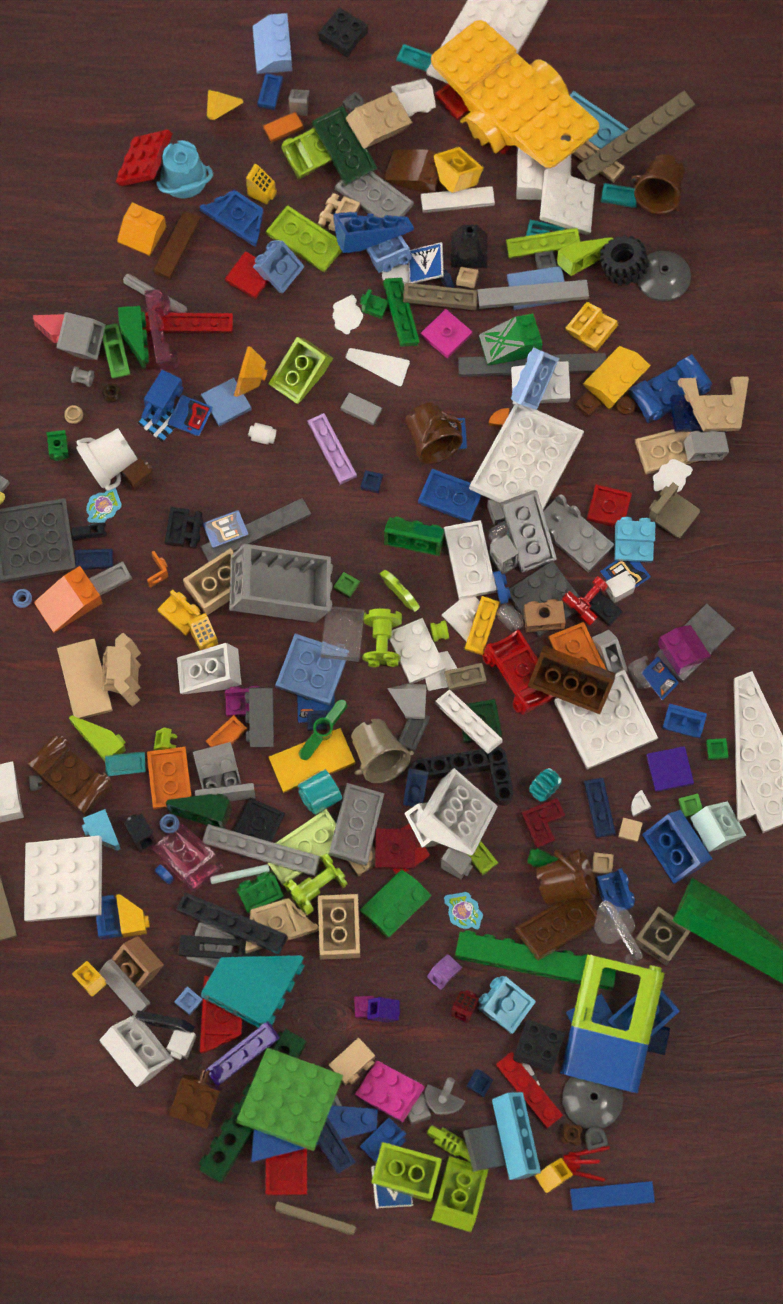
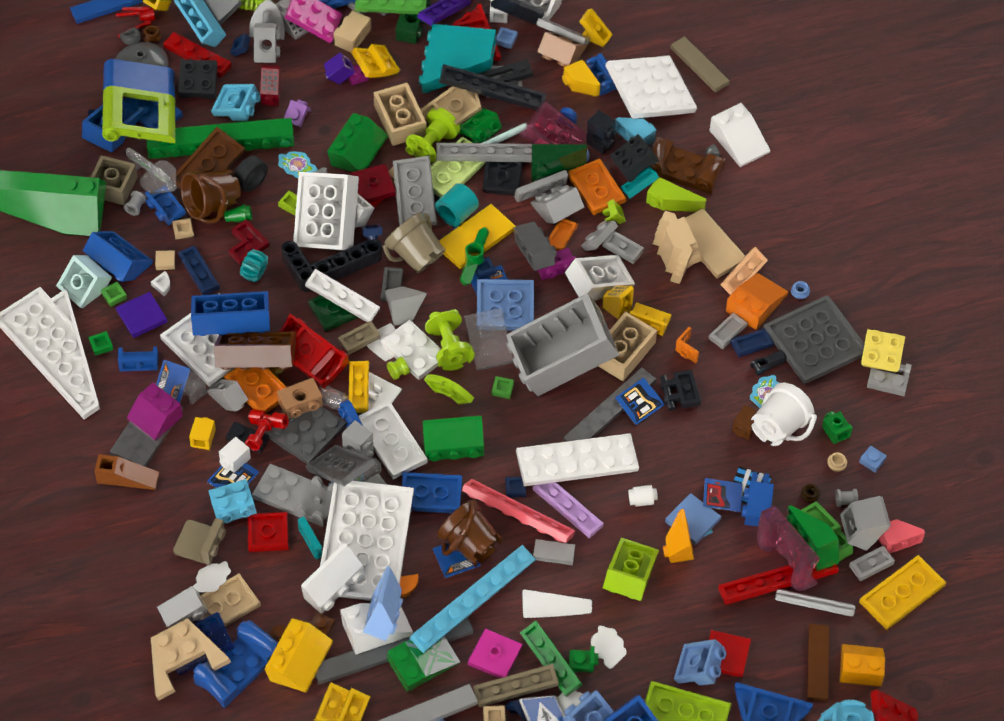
camera: 160 degrees right, 15 degrees down
(40, 409) = (872, 459): none -> medium blue plate
(67, 633) = (744, 270): none -> light nougat tile
(75, 282) = (902, 592): none -> yellow tile
(95, 310) = (871, 563): none -> light grey plate
(120, 788) = (633, 157): none -> black brick
(172, 698) = (623, 247): none -> light grey plate
(190, 717) = (594, 239): none -> light grey plate
(307, 484) = (577, 459): none -> white plate
(340, 1014) = (375, 61): none -> yellow slope
(379, 453) = (513, 508): none -> coral plate
(450, 376) = (472, 599): none -> medium azure plate
(452, 1064) = (264, 53): none -> light grey brick
(517, 896) = (251, 173): none -> black tyre
(569, 424) = (332, 579): none -> white slope
(574, 484) = (309, 537): none -> teal tile
(586, 721) = (230, 313): none -> blue brick
(643, 619) = (202, 433): none -> yellow brick
(644, 906) = (135, 202): none -> light grey bush
(726, 596) = (122, 472): none -> dark orange slope

